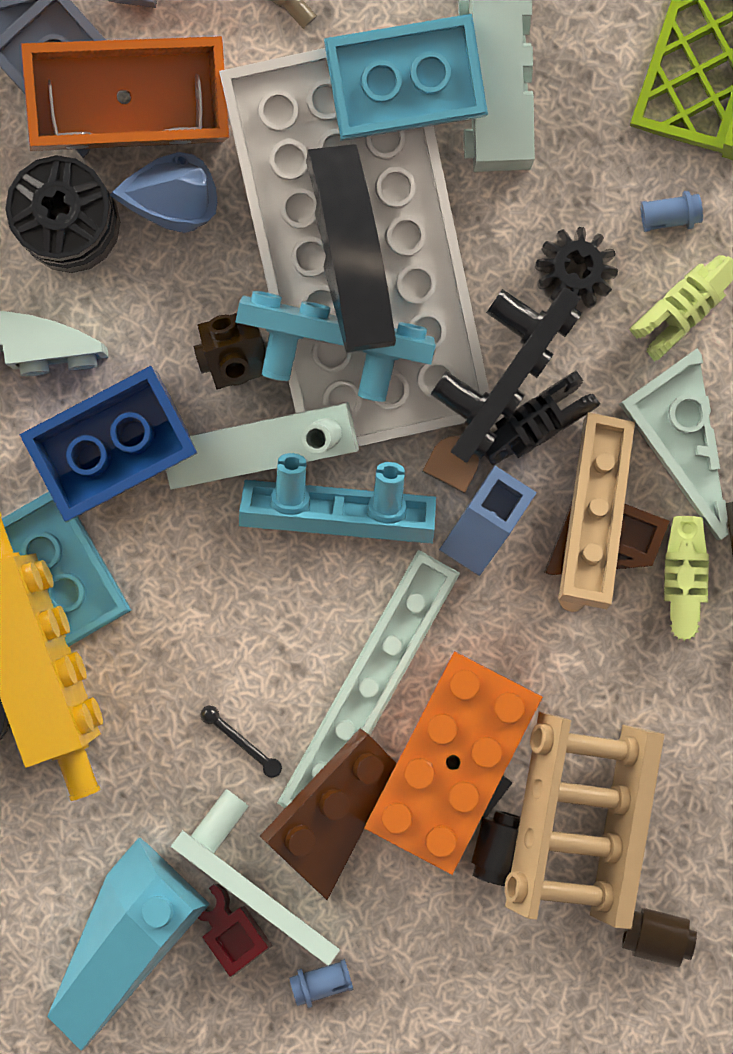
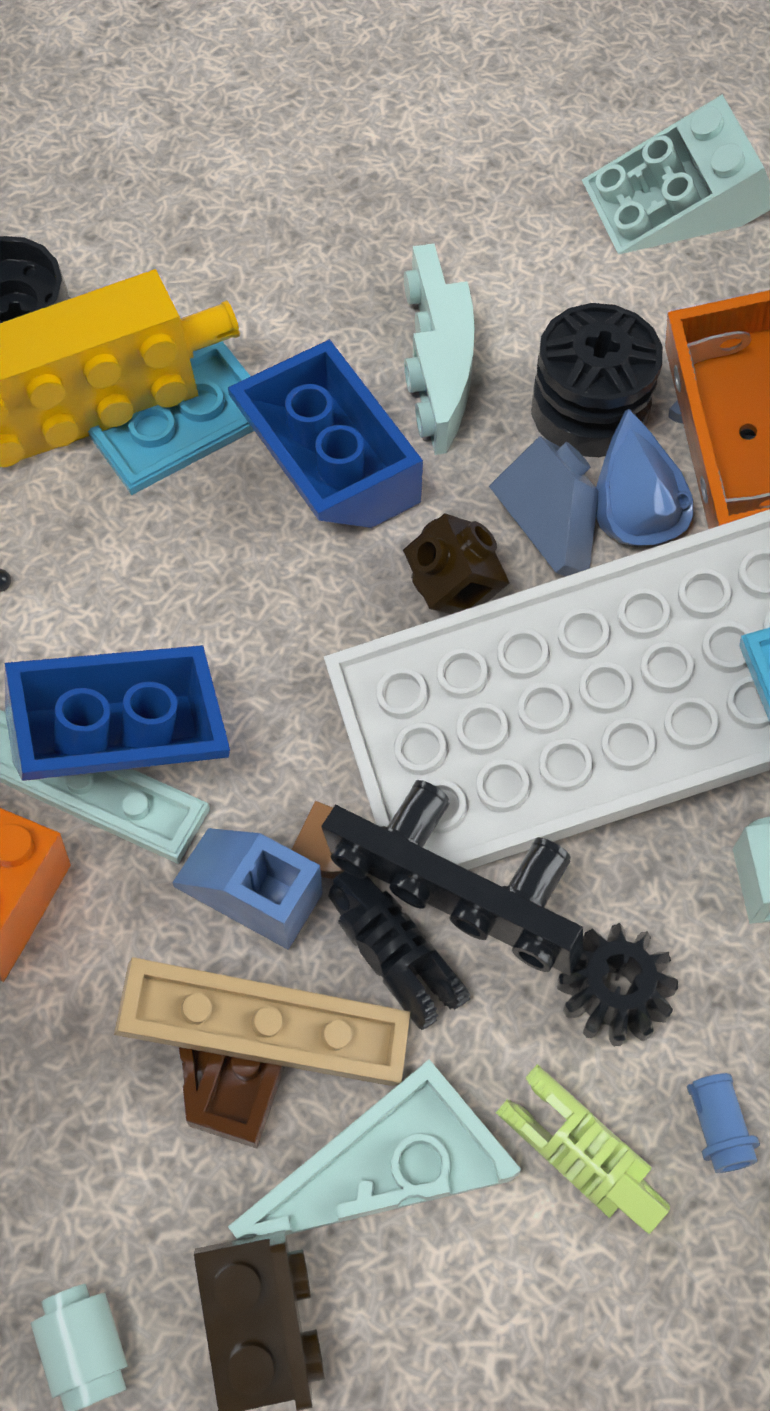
camera: 85 degrees right, 25 degrees down
(183, 266) = (552, 503): none -> sand blue slope
(259, 445) = (337, 610): light aqua piece -> none
(312, 320) = (488, 680): medium azure plate -> none
(338, 511) = (256, 699): medium azure plate -> none
(351, 248) = (595, 651): black slope -> none
(368, 613) = (112, 712): none -> blue slope
(686, 574) = (169, 1178): yellowish green hinge -> none

